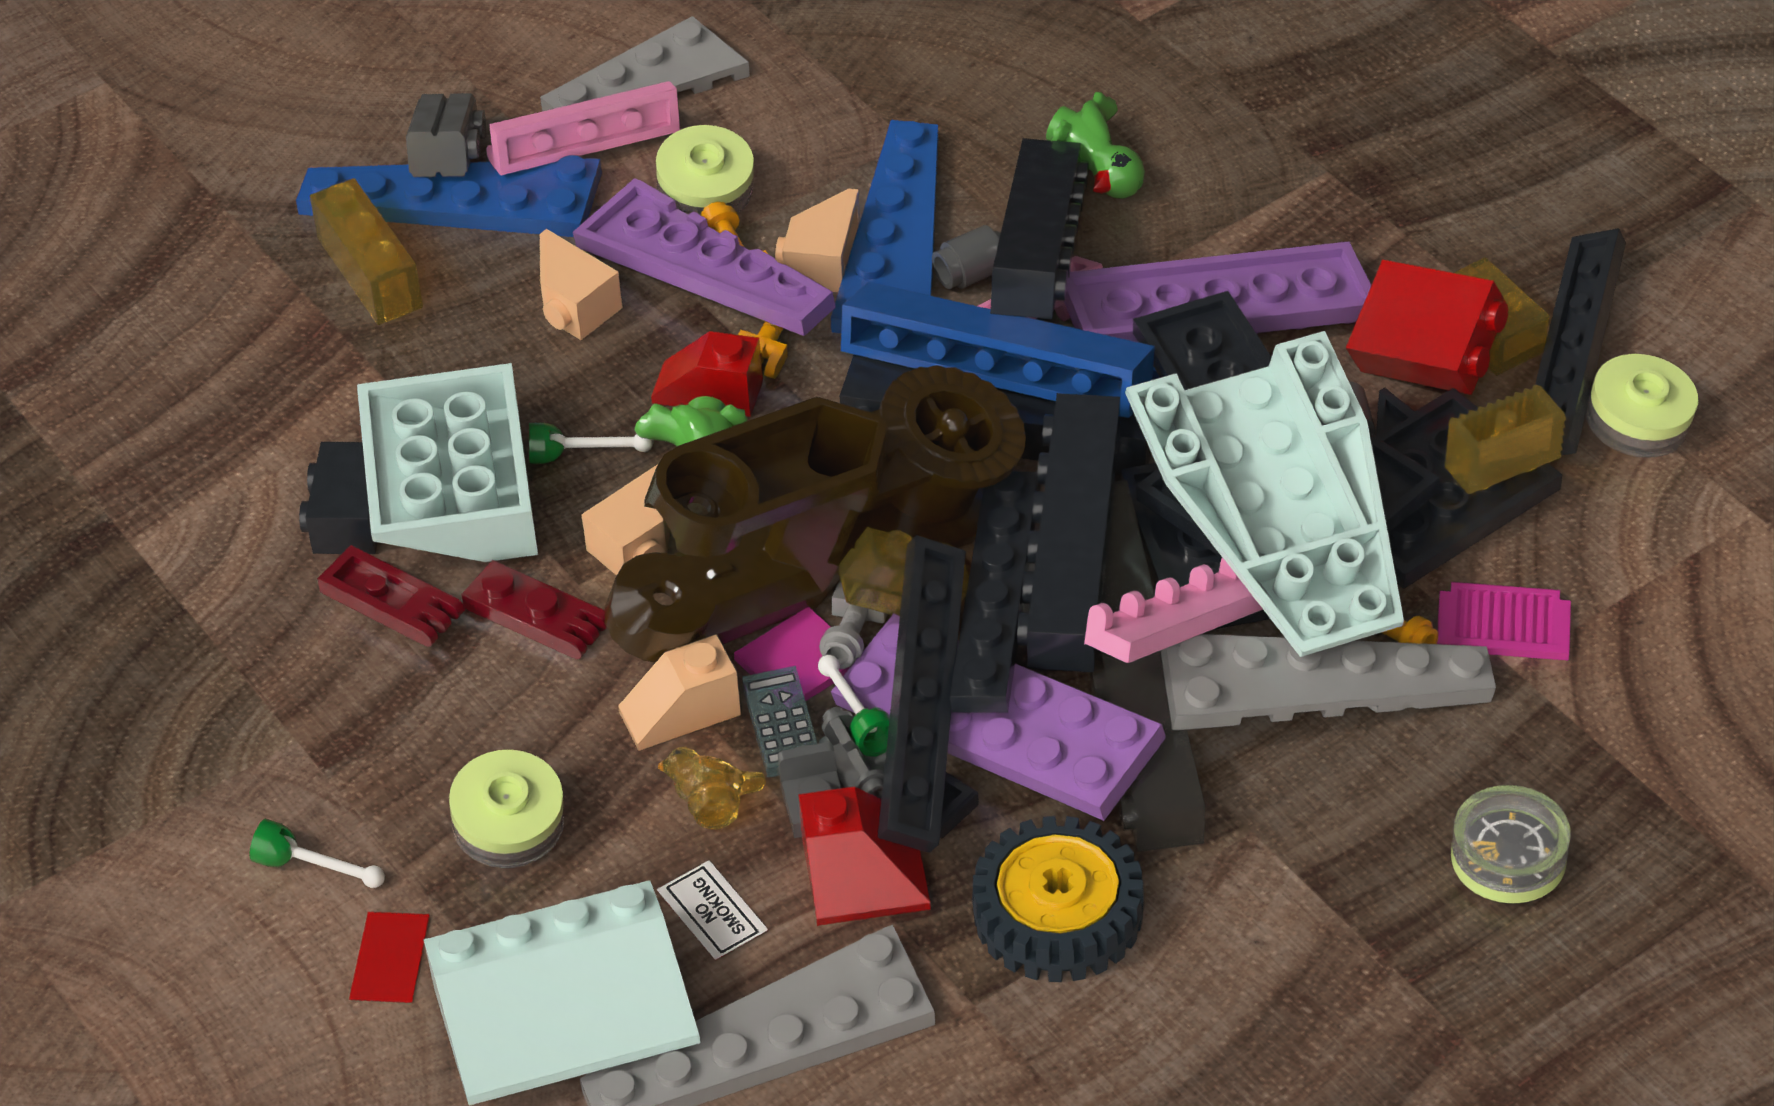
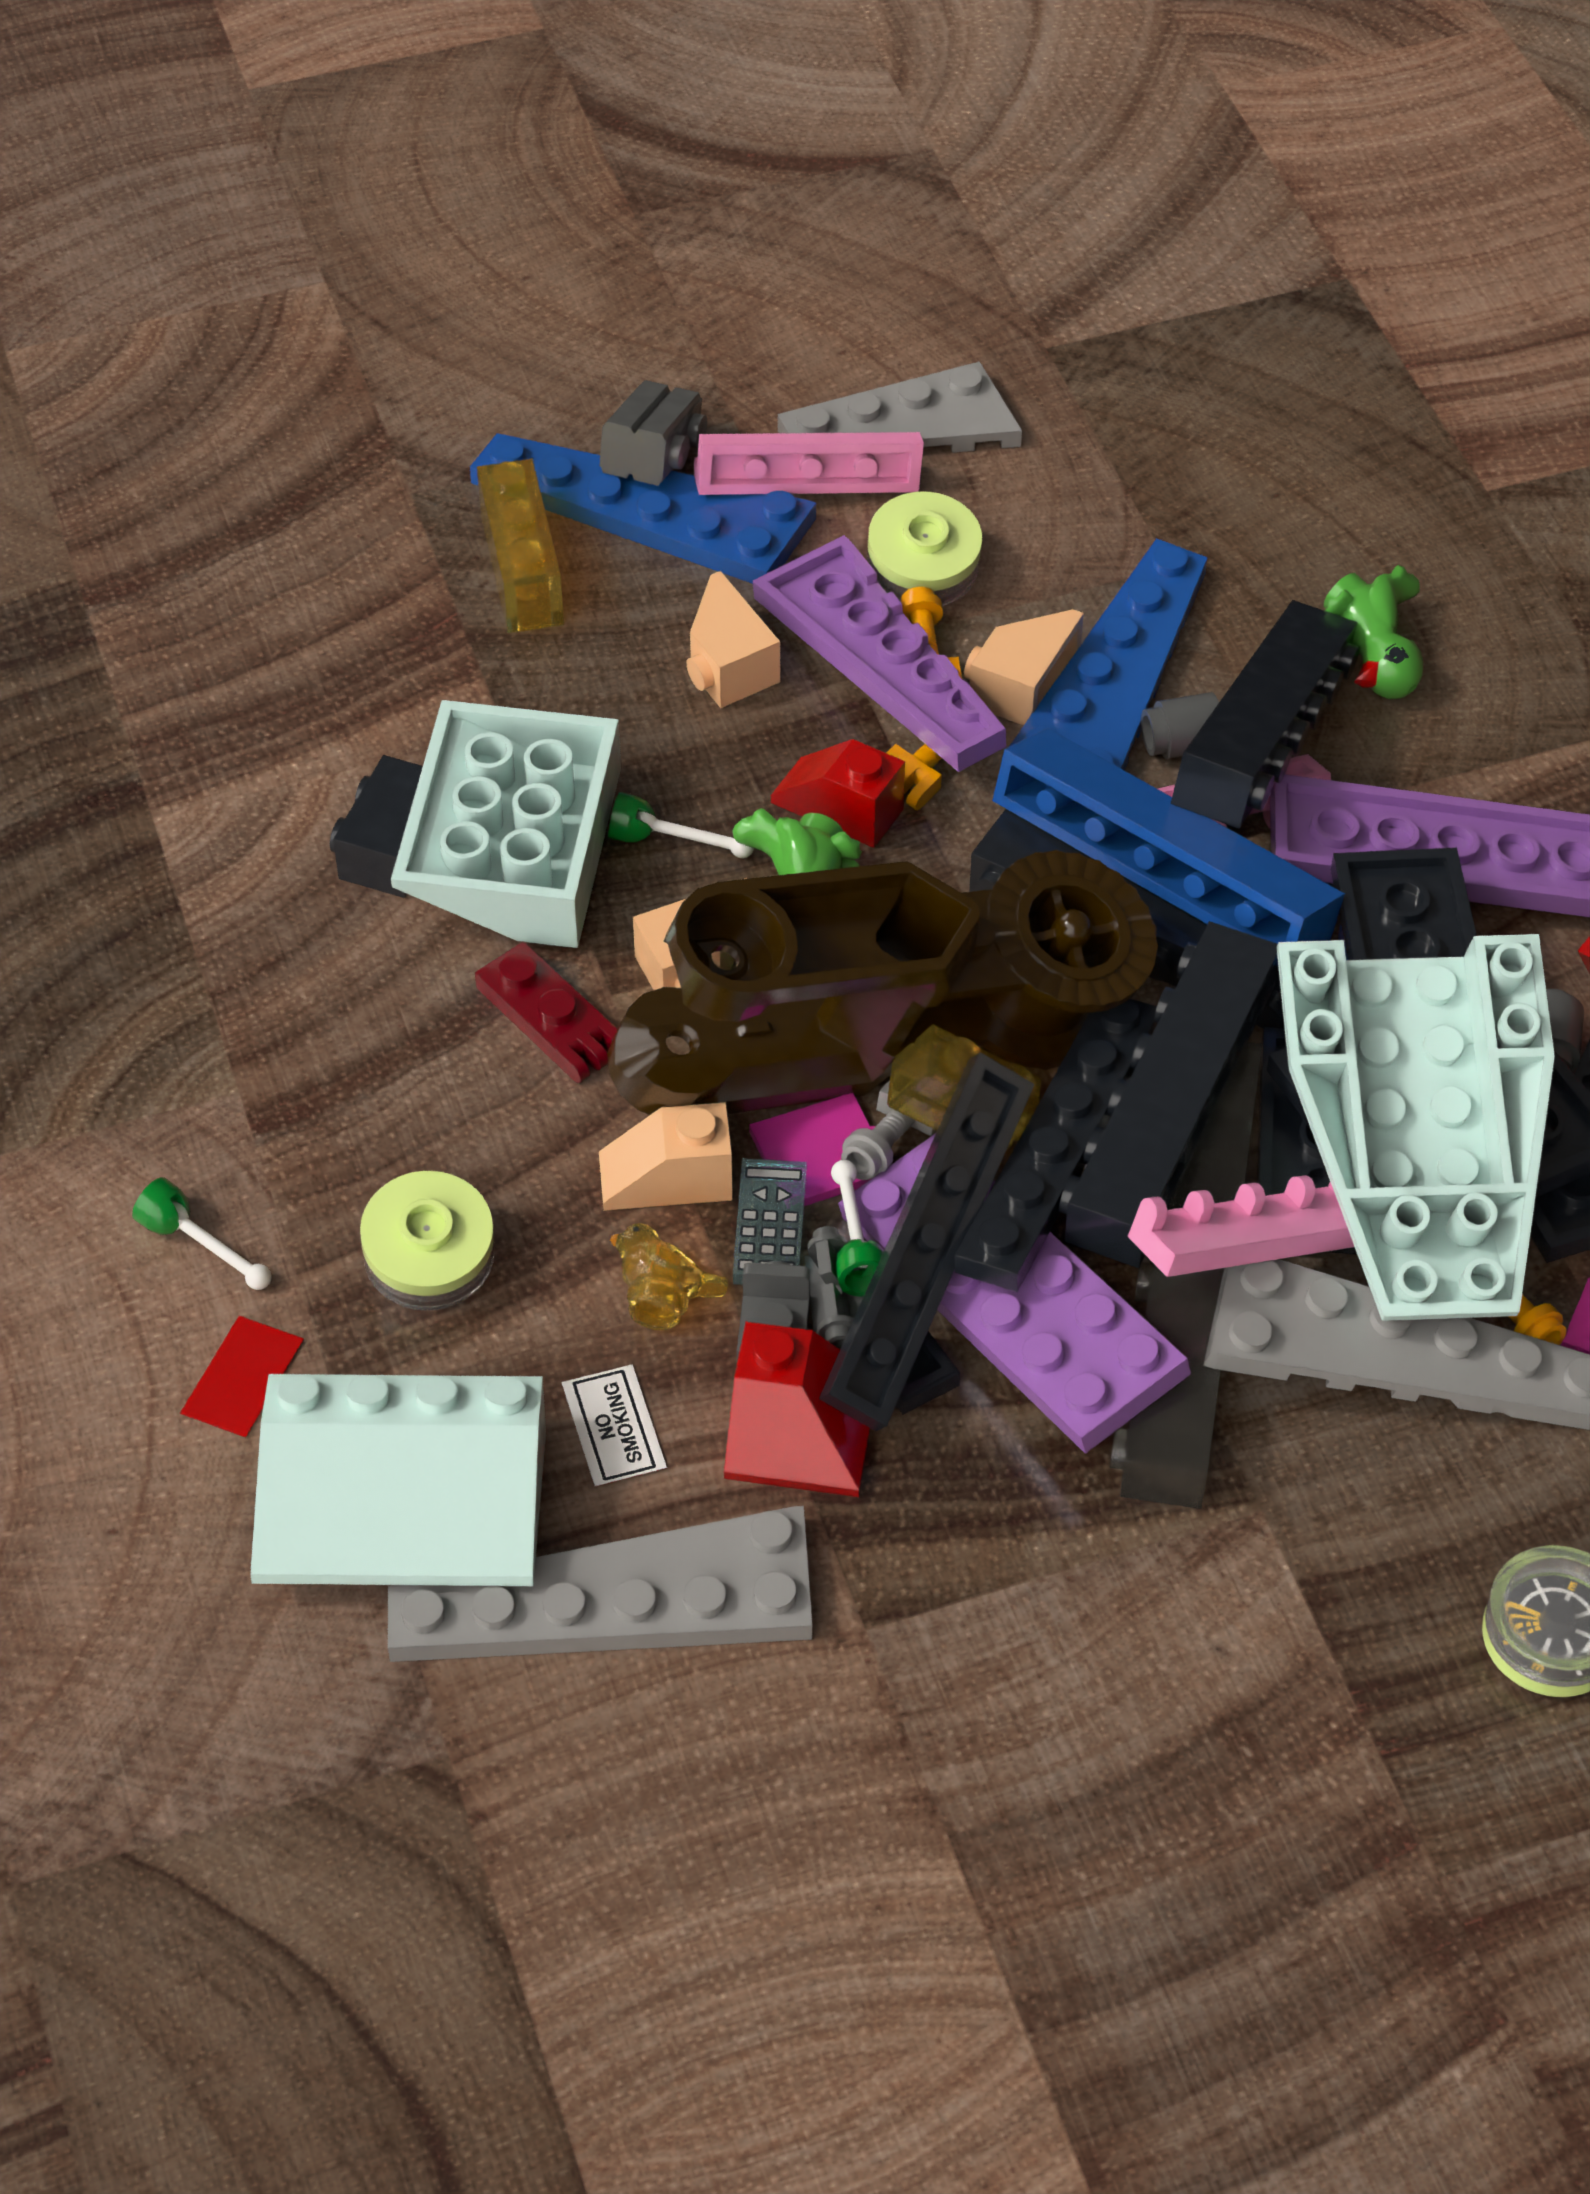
camera: 15 degrees right, 5 degrees up
(389, 596) = (396, 952): dark red hinge -> none
(1058, 898) = (1003, 1530): wheel -> none

